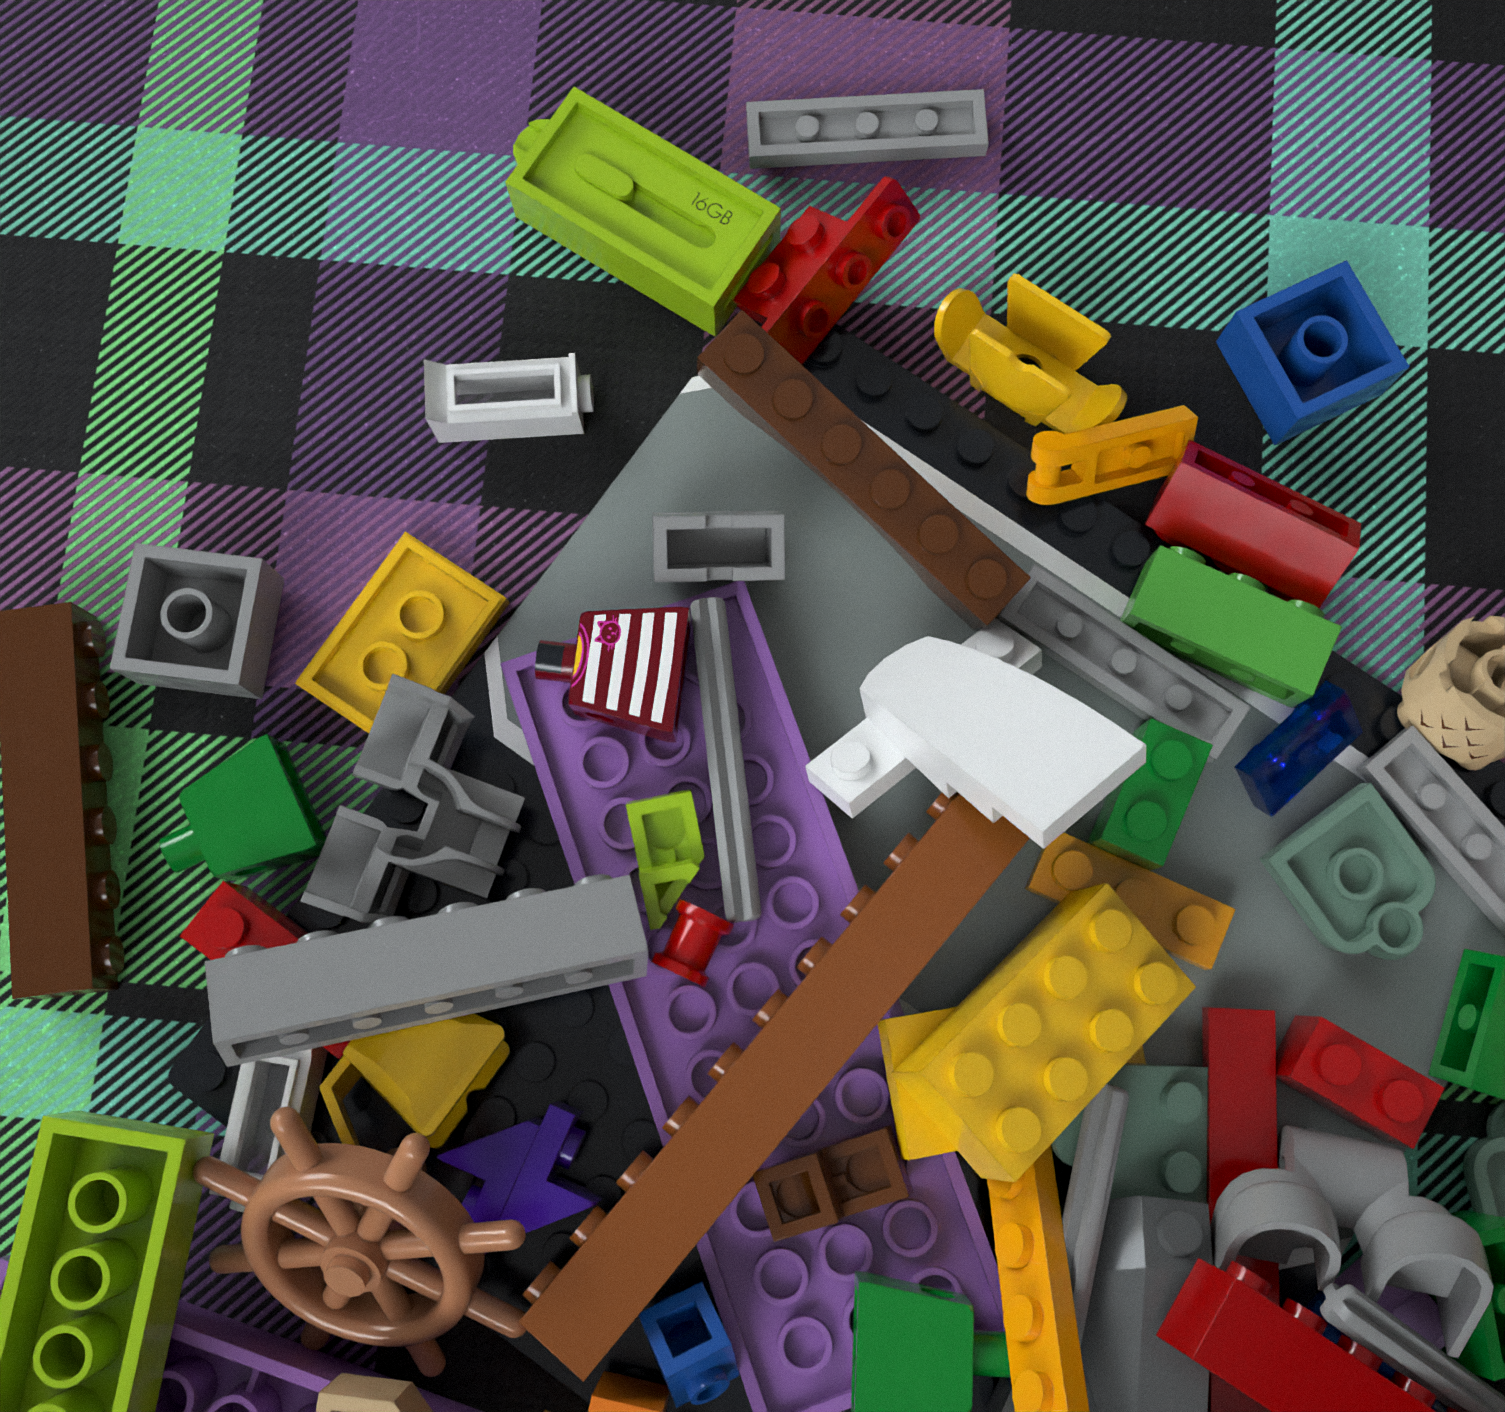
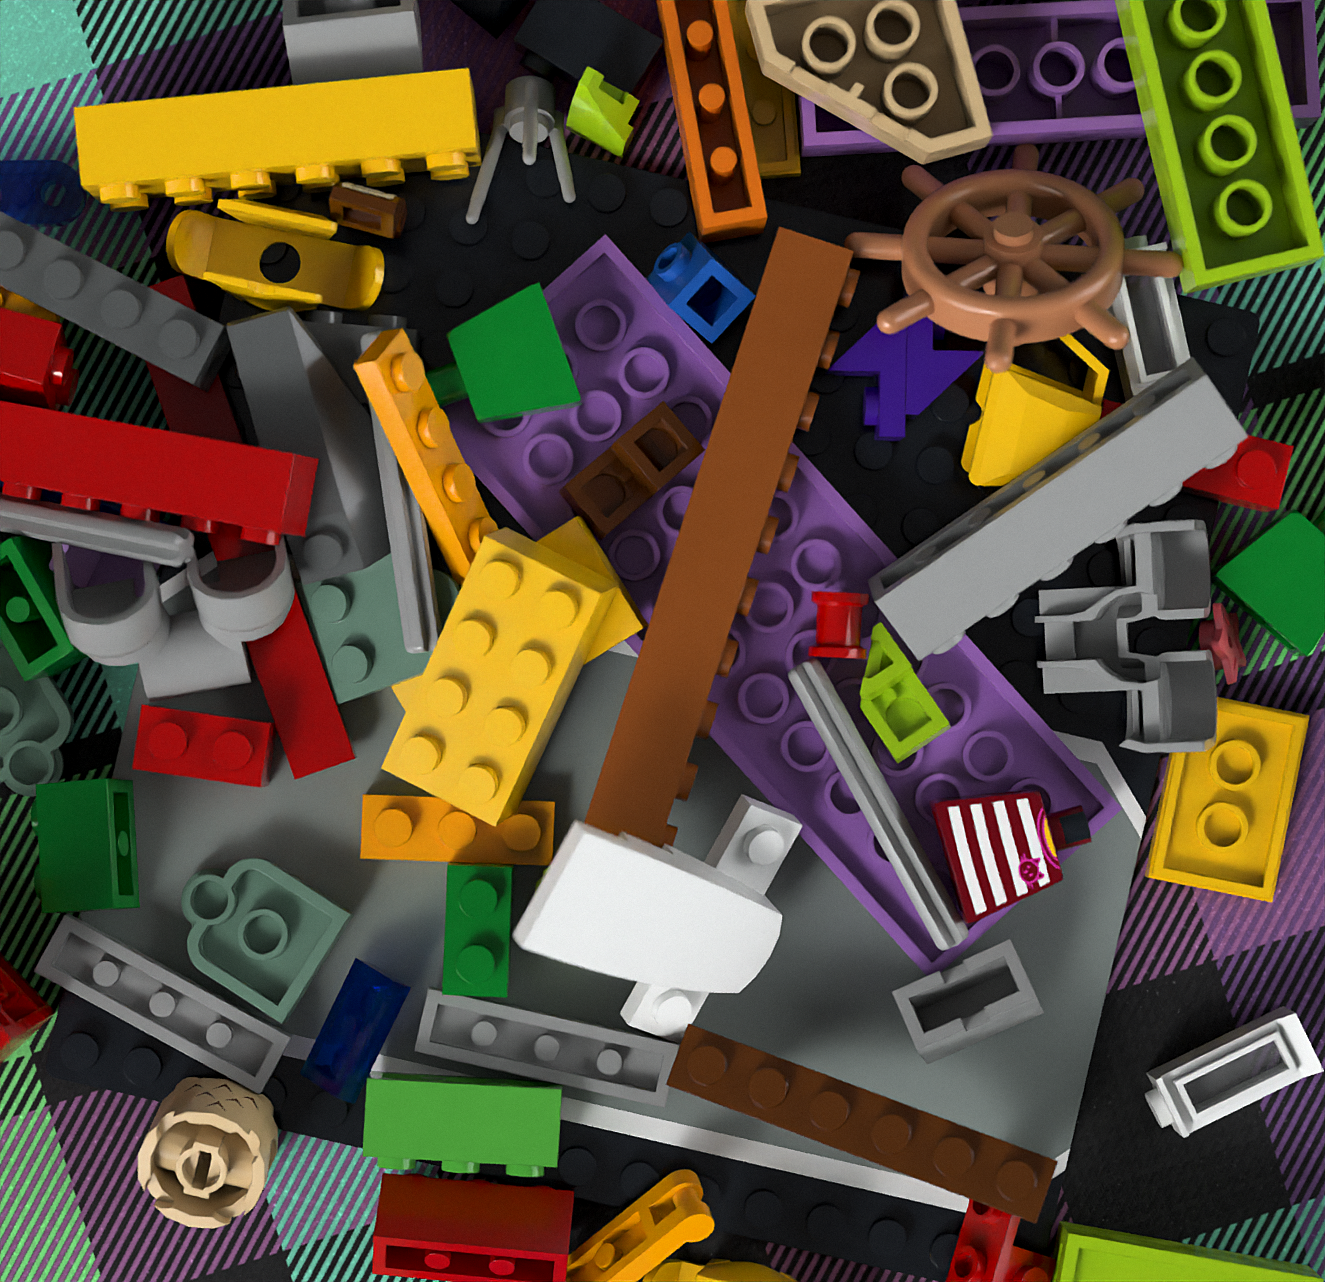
camera: 155 degrees right, 10 degrees up
(341, 786) = (1222, 639): none -> coral plate

